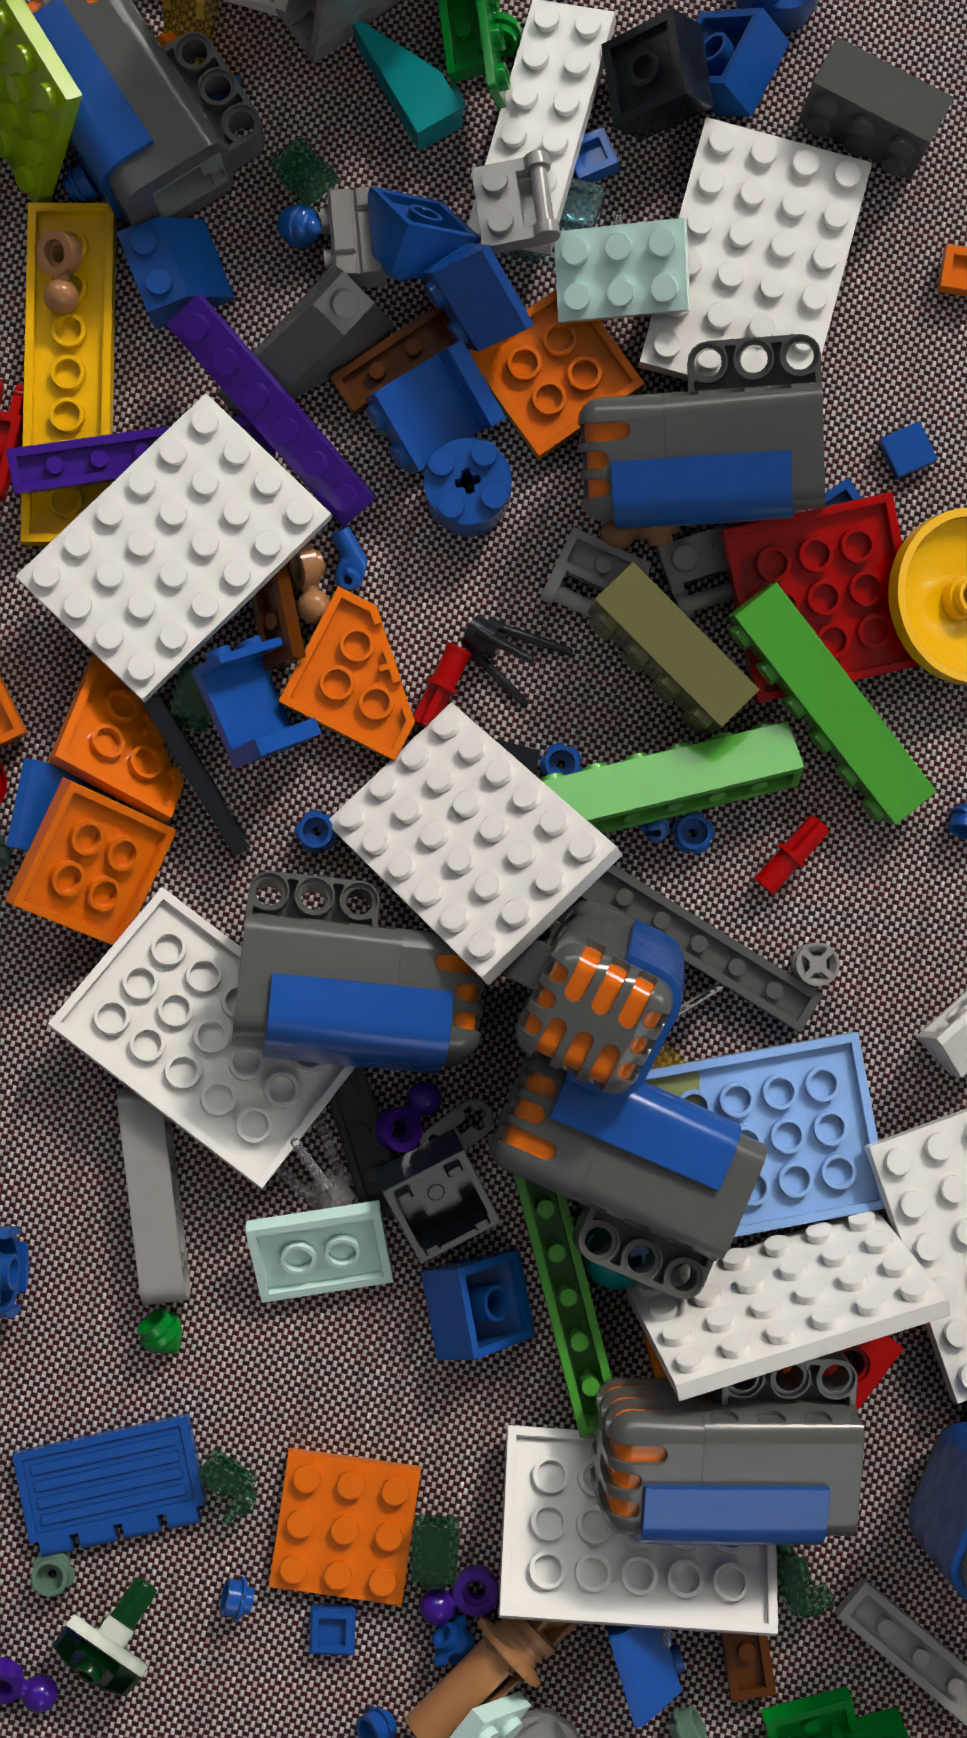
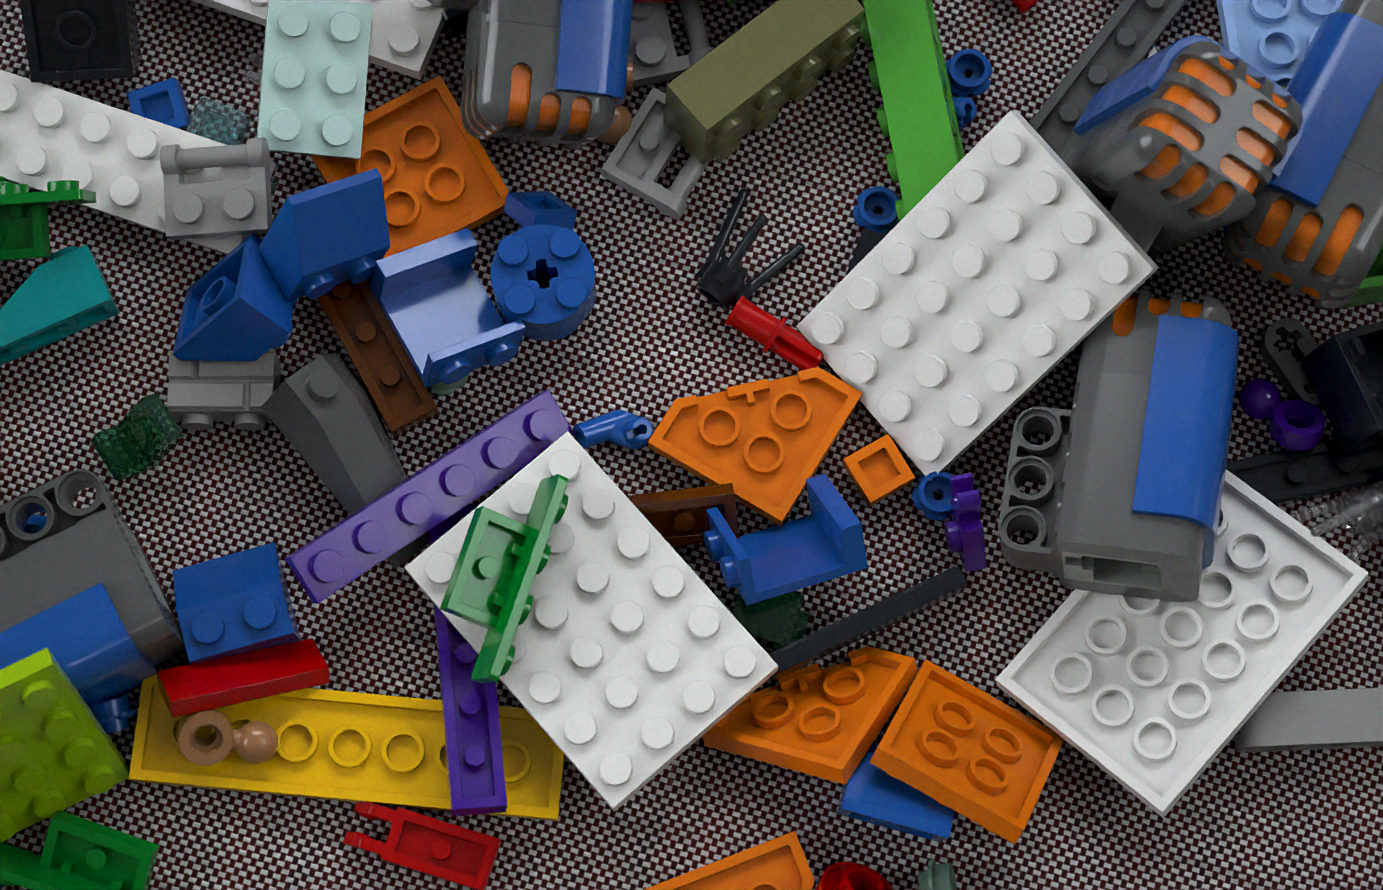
camera: 85 degrees left, 10 degrees down
(111, 278) = (242, 677): none -> red tile
(195, 460) = (497, 573): none -> green bracket
(284, 852) = (966, 530): none -> dark purple plate
(299, 226) = (201, 451): blue plate -> none
(306, 572) = (631, 478): medium nougat plate -> none
(332, 779) = (878, 470): none -> orange plate
(530, 478) = (539, 208): none -> blue plate

